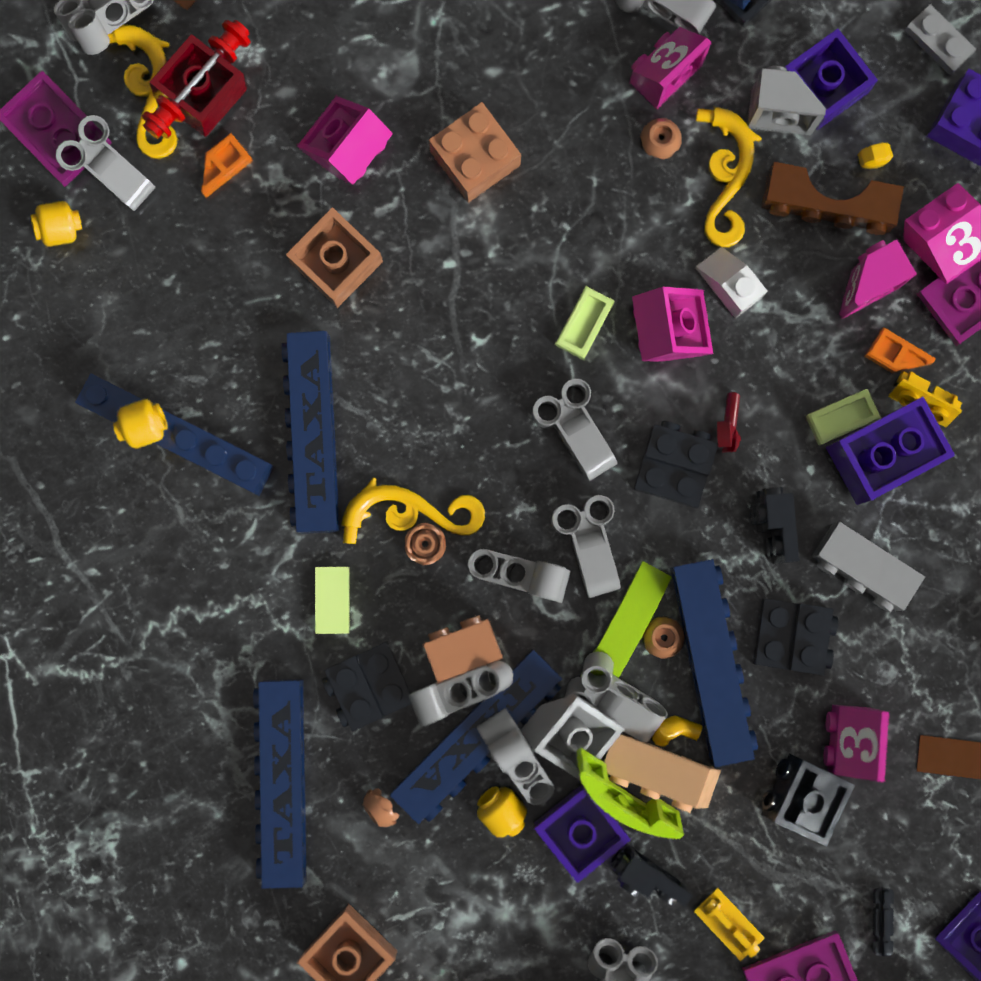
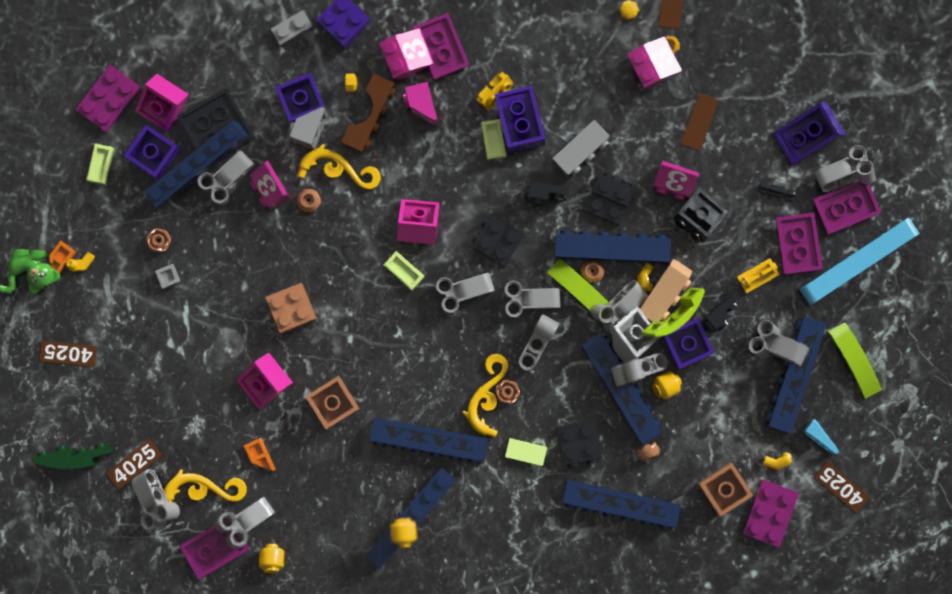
camera: 75 degrees left, 0 degrees up
(198, 83) = (212, 456): dark red brick -> none
(446, 697) = (595, 401): light grey piece -> none
(463, 649) = (571, 384): nougat brick -> none
(726, 430) = (485, 206): dark red bar -> none
(731, 281) = (401, 182): white slope -> none
(896, 353) = (465, 100): orange tile -> none

